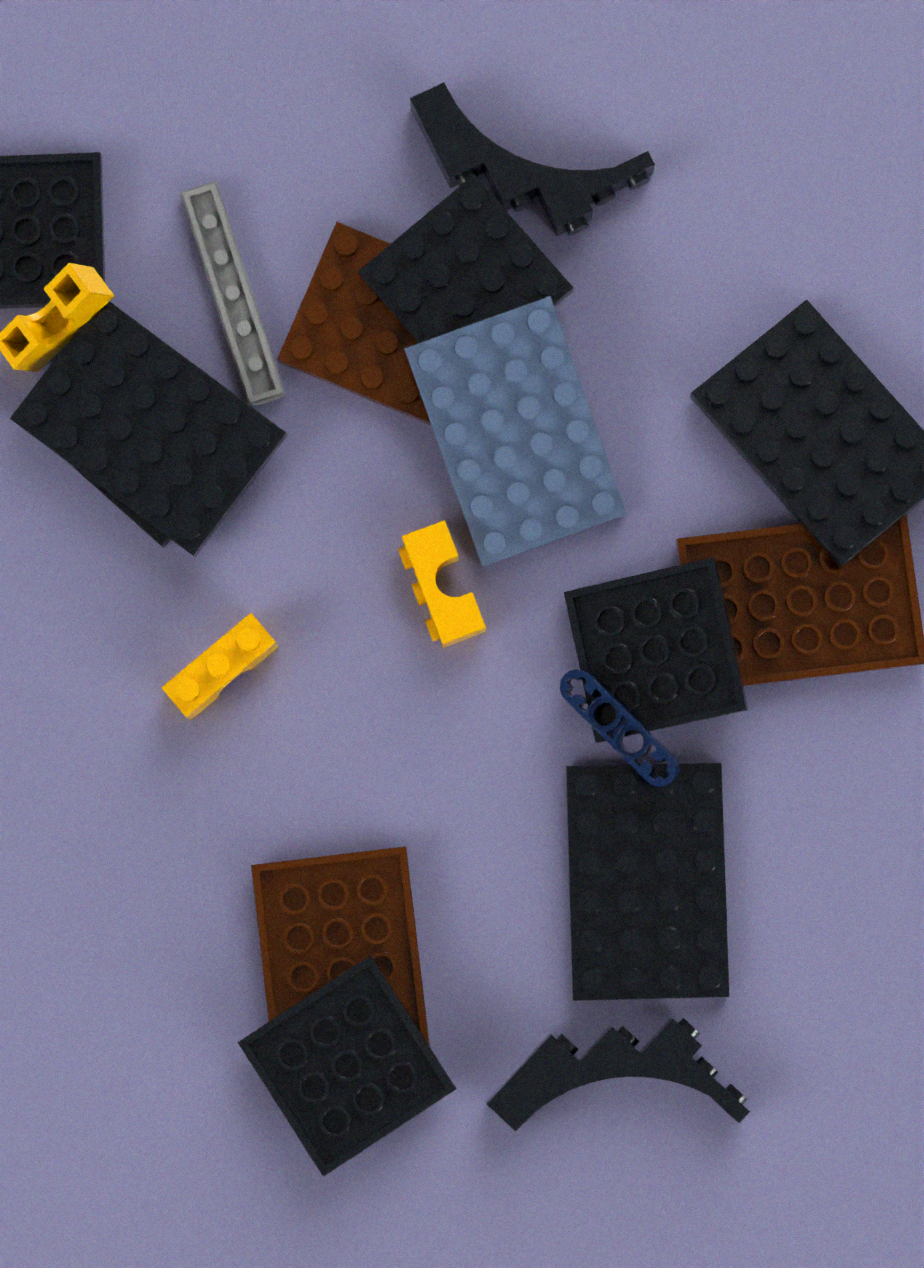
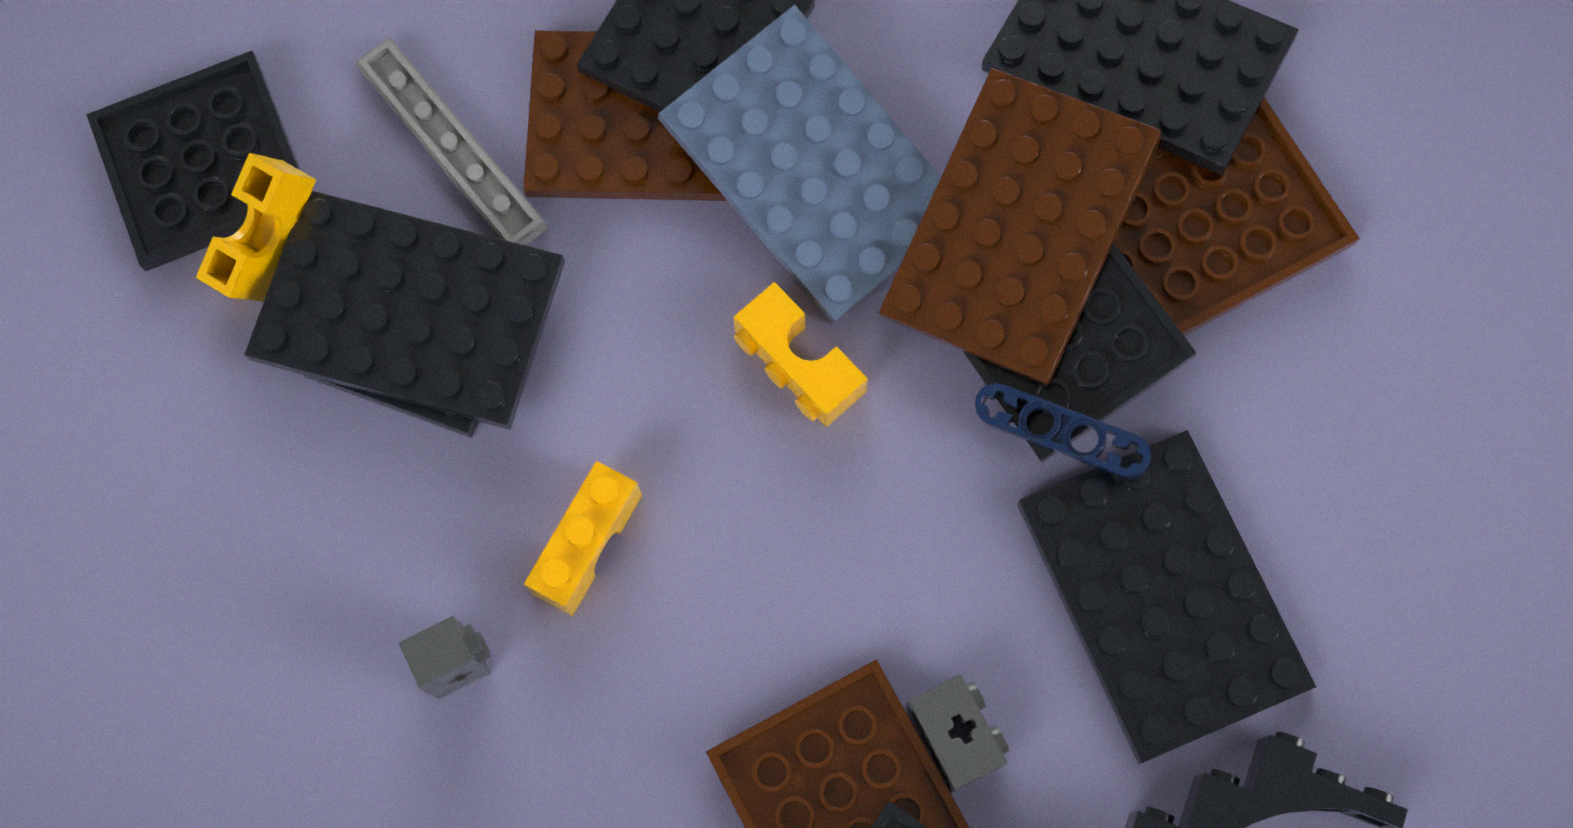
camera: 20 degrees left, 10 degrees down
(84, 720) = (446, 657): none -> dark grey brick
(435, 946) = (958, 761): none -> dark grey brick
(655, 550) = (1020, 225): none -> reddish brown plate

